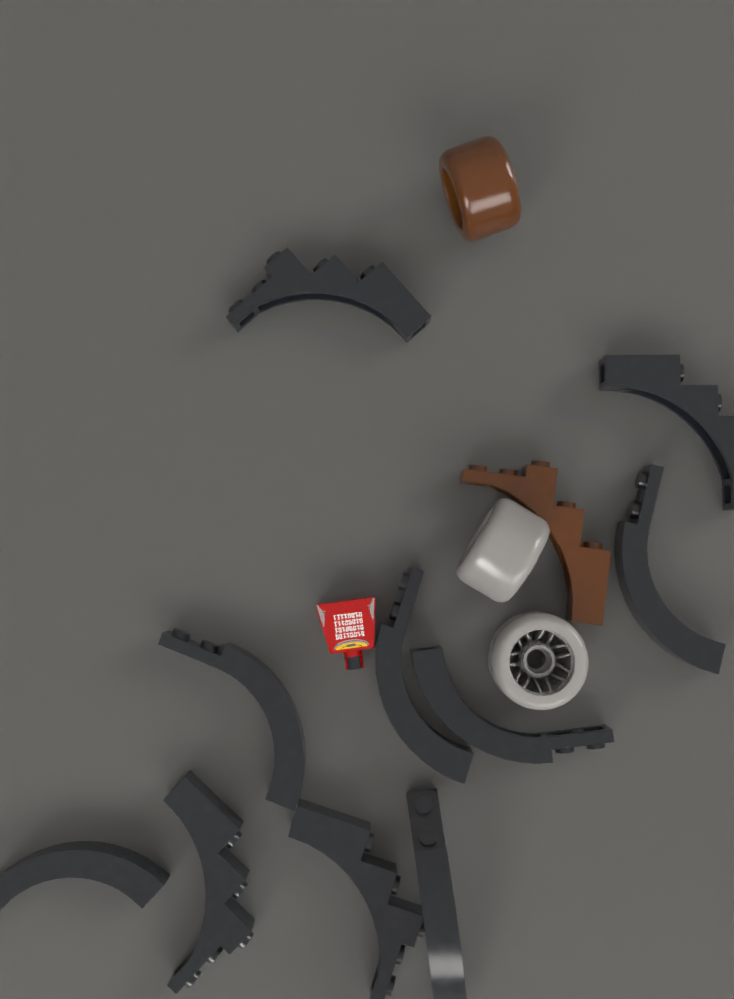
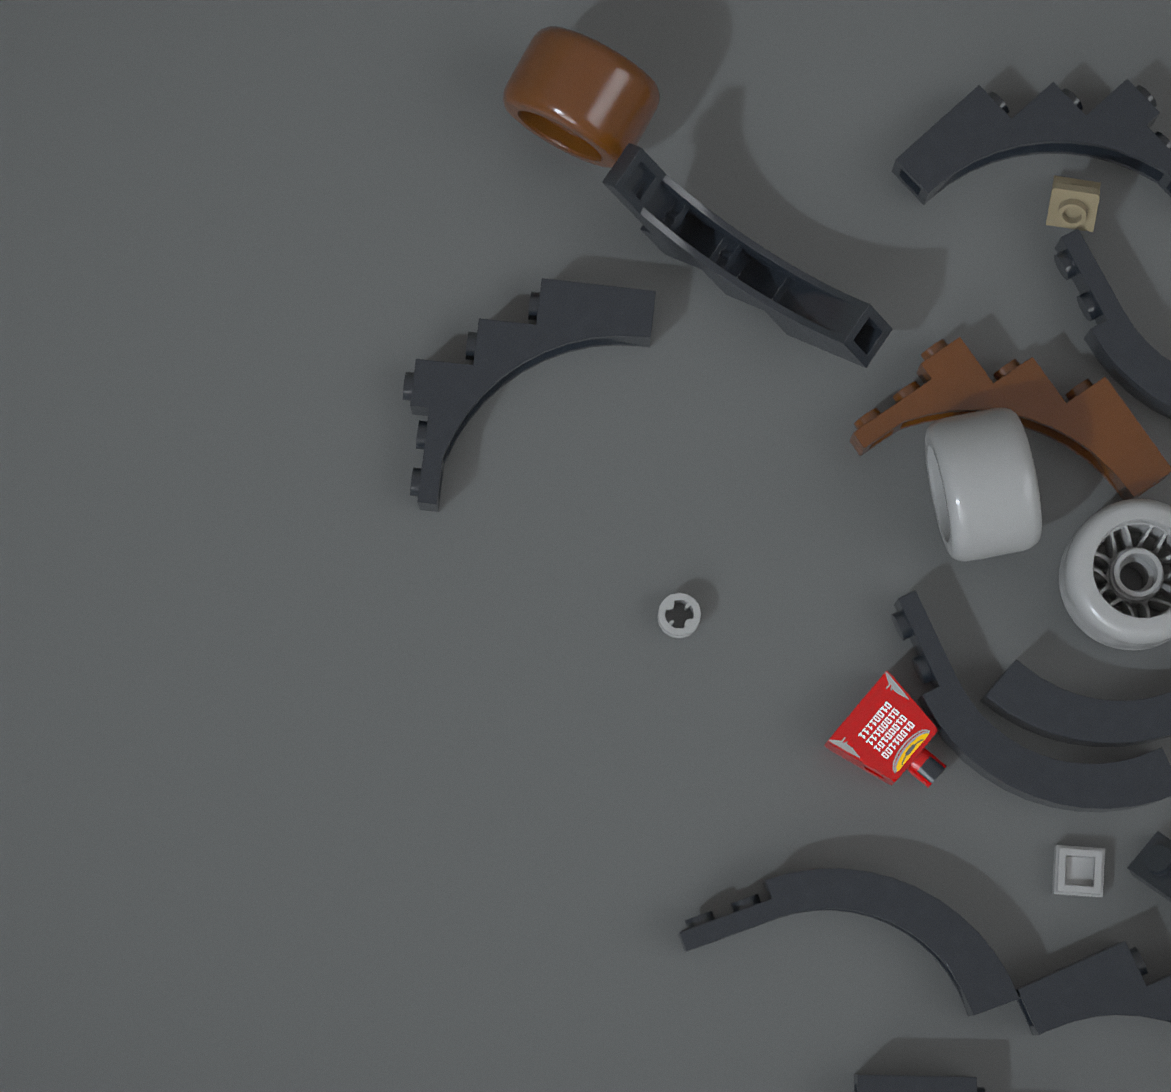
camera: 40 degrees left, 5 degrees down
(303, 472) = (690, 624): none -> light grey bush
(381, 772) = (1078, 871): none -> light grey tile
(482, 337) = (741, 267): none -> black arch
(672, 453) = (1073, 203): none -> dark tan bracket

